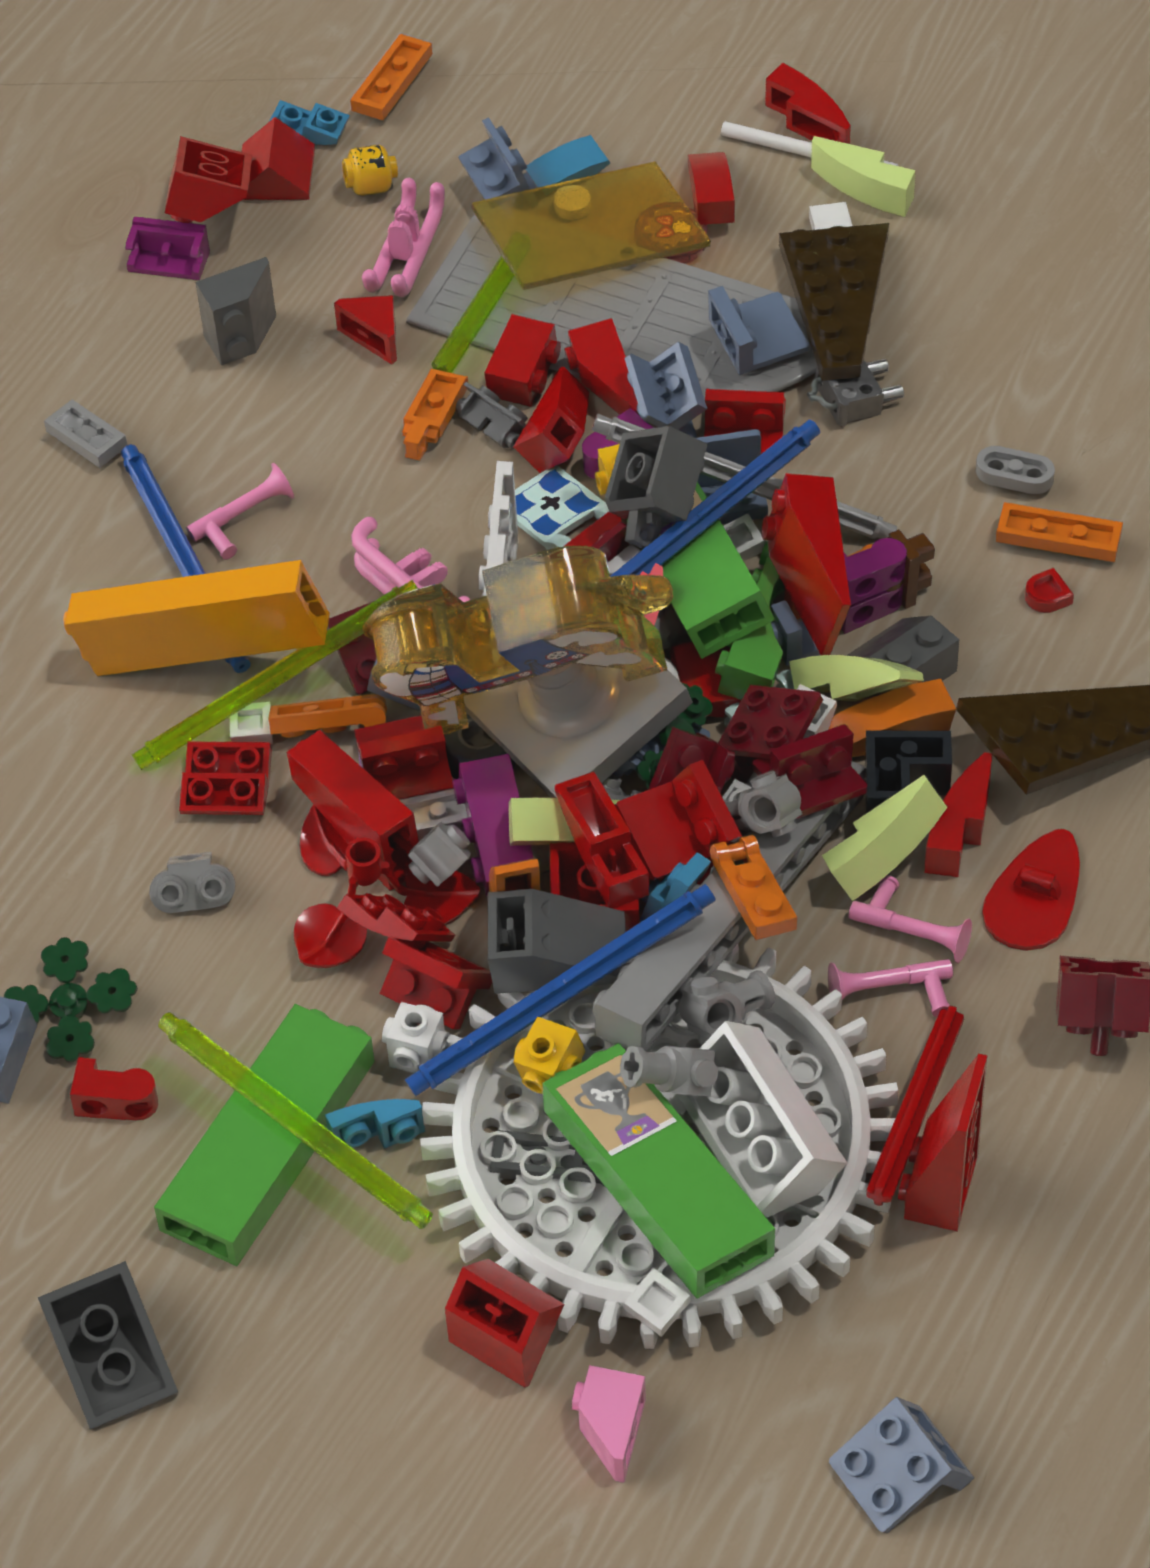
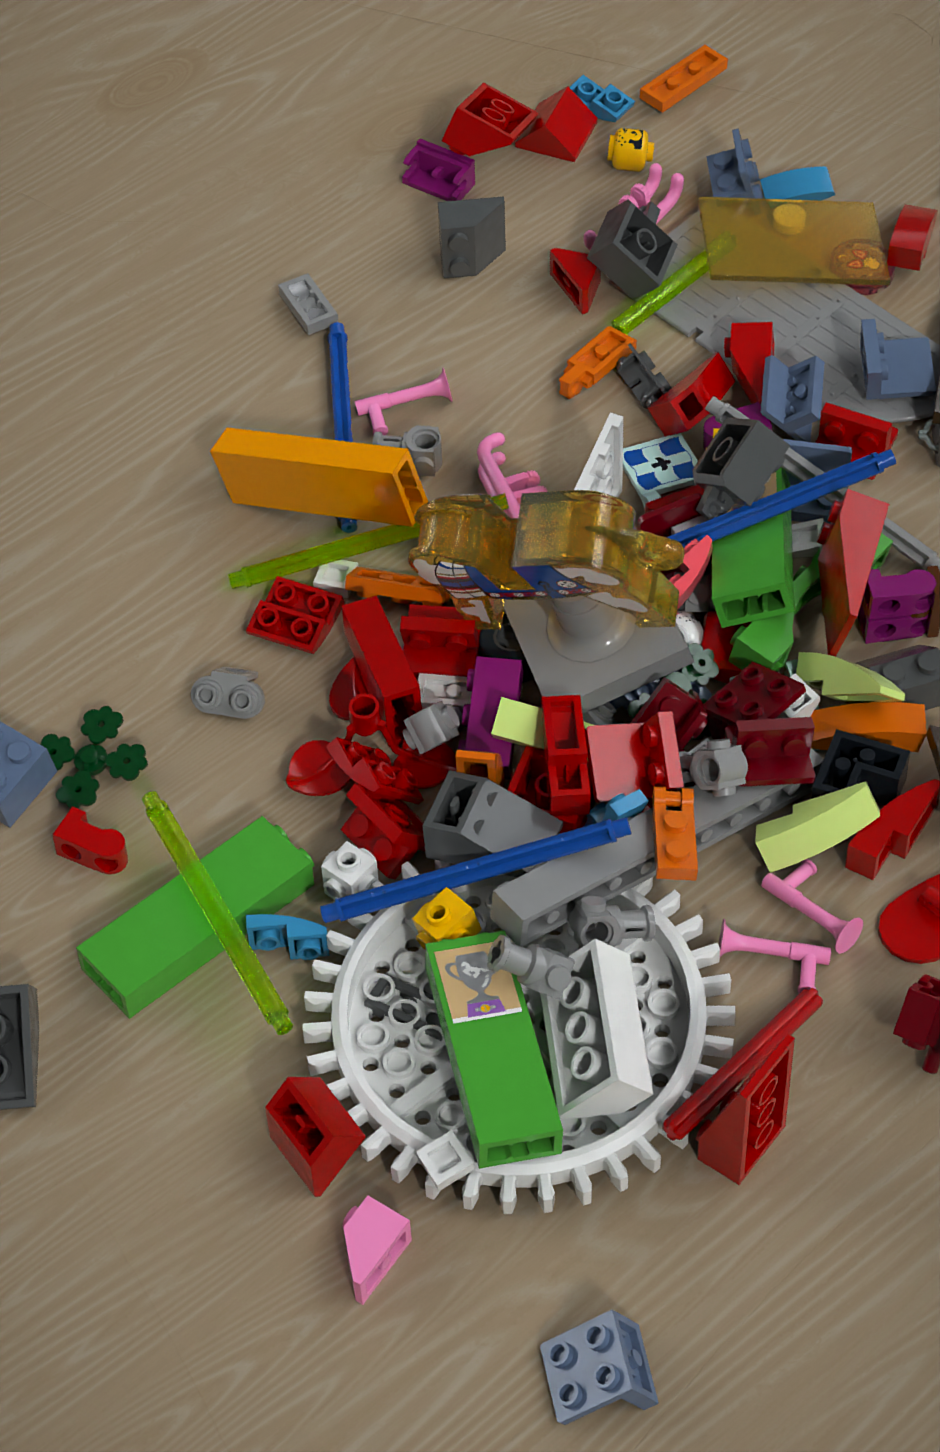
camera: 20 degrees right, 0 degrees up
(280, 548) = (423, 445): none -> light grey connector
(427, 277) = (633, 248): none -> dark grey hinge
(522, 360) = (686, 338): red piece -> none
(791, 634) = (808, 628): sand blue bracket -> none

